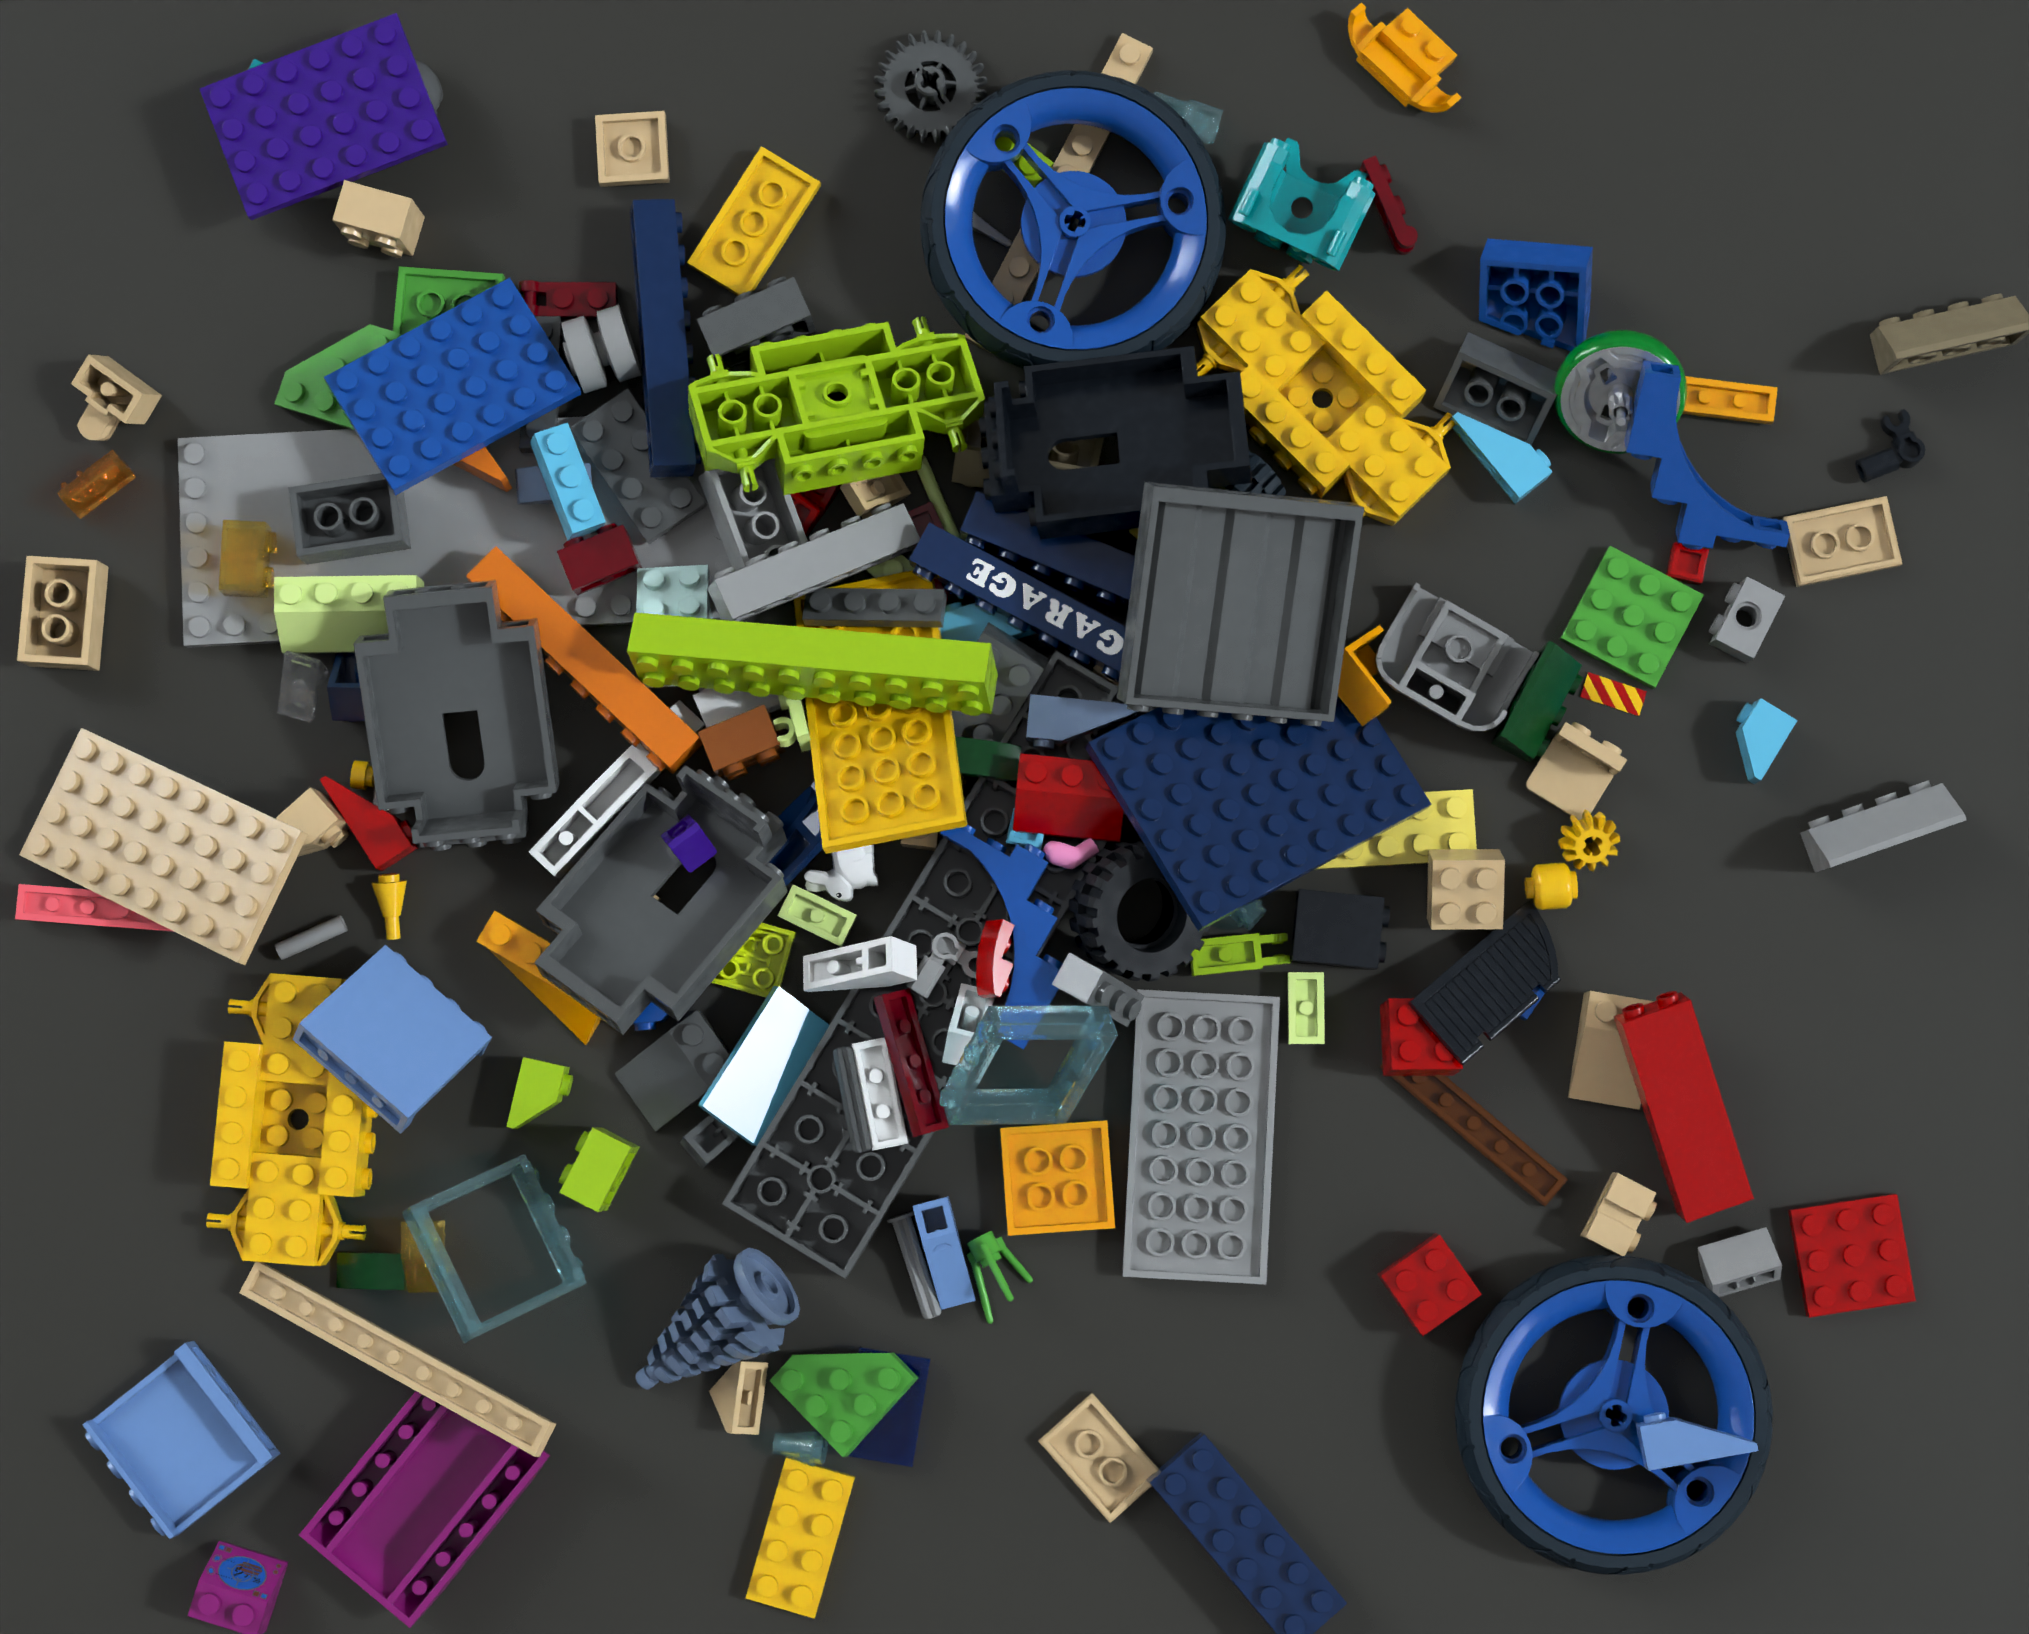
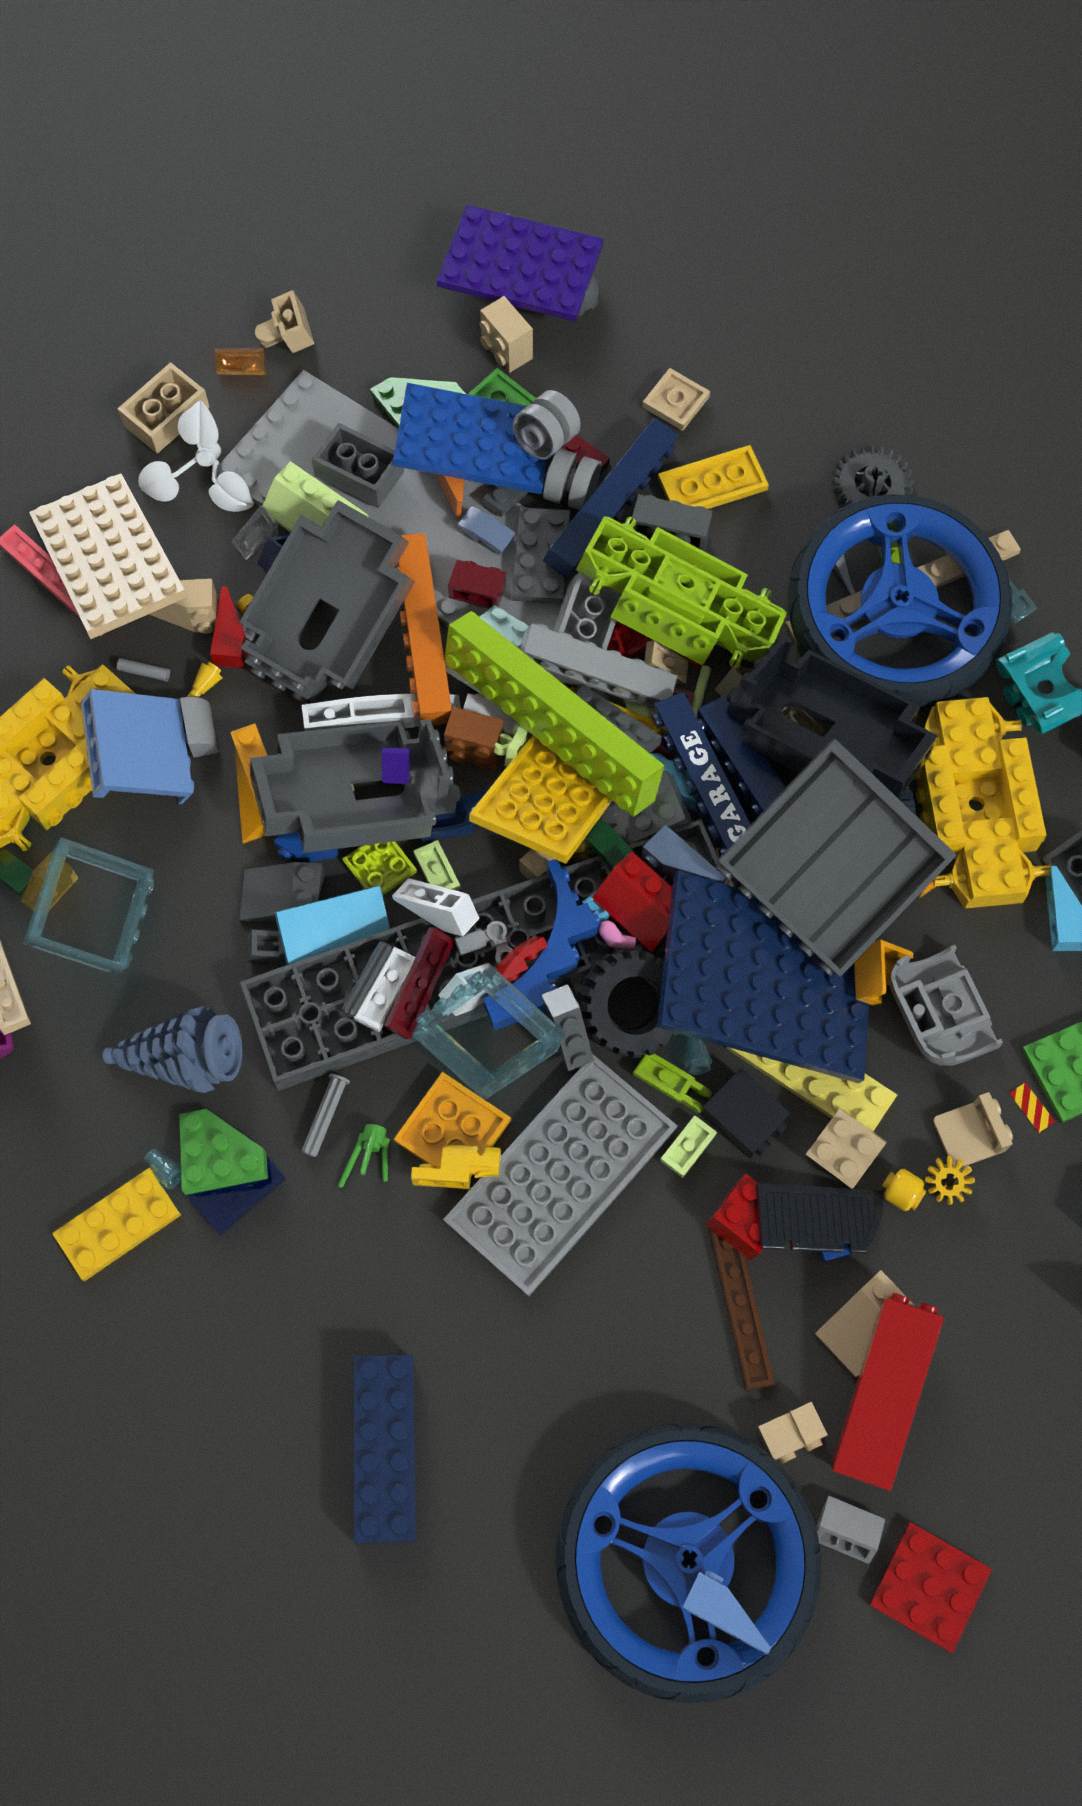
camera: 30 degrees right, 15 degrees down
(145, 620) = (198, 428): none -> white plant
(246, 558) = (283, 445): clear yellow brick -> none
(431, 955) = (199, 726): none -> light grey brick
(530, 315) = (546, 424): none -> light grey wheel
(538, 1090) = (192, 844): lime slope -> none
(567, 481) = (494, 526): medium azure brick -> none
(598, 1168) = (187, 910): lime brick -> none
(740, 1397) = (155, 1110): tan slope -> none
(850, 871) = (480, 858): white animal -> none
(944, 1252) = (347, 1117): medium blue slope -> none
(1097, 1213) = (457, 1167): none -> yellow plate
(1100, 1457) = (337, 1323): tan tile -> none
(1429, 1284) = (632, 1378): red brick -> none
(1539, 703) = (979, 1071): dark green slope -> none

